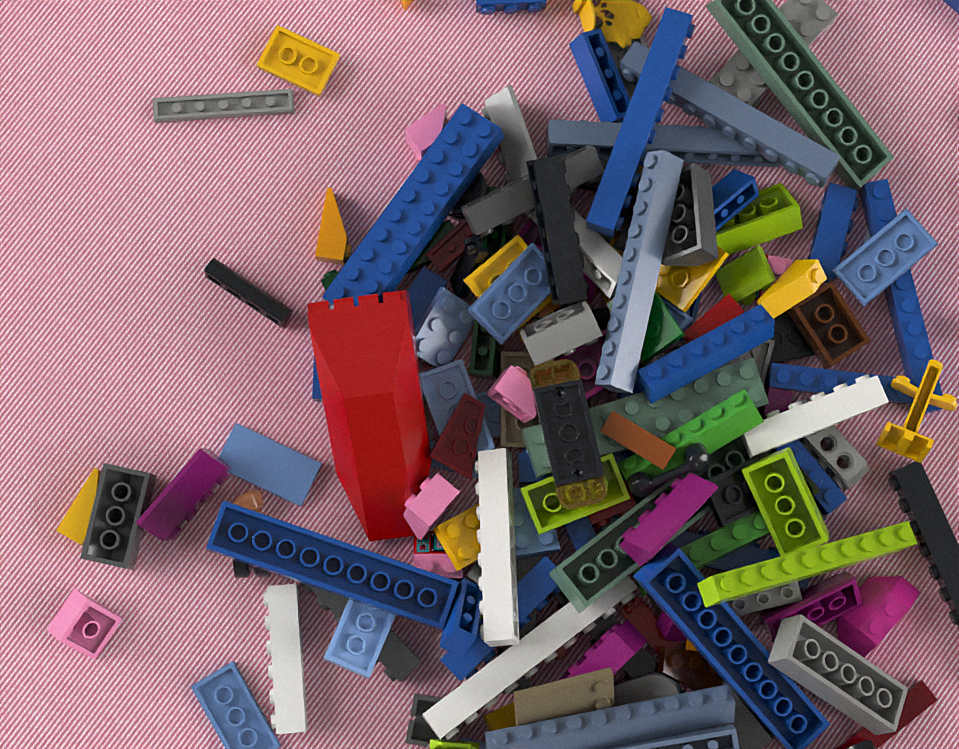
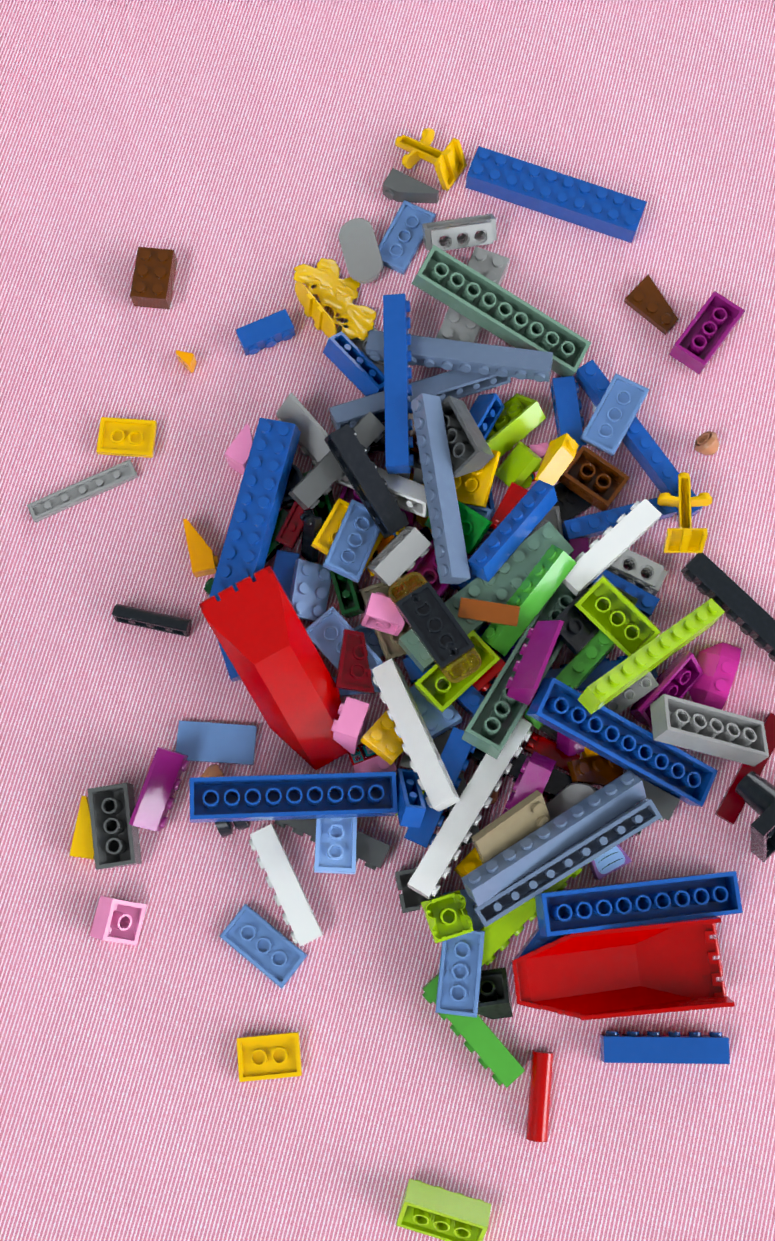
camera: 15 degrees left, 5 degrees down
(696, 461) = (538, 610): black piece -> none

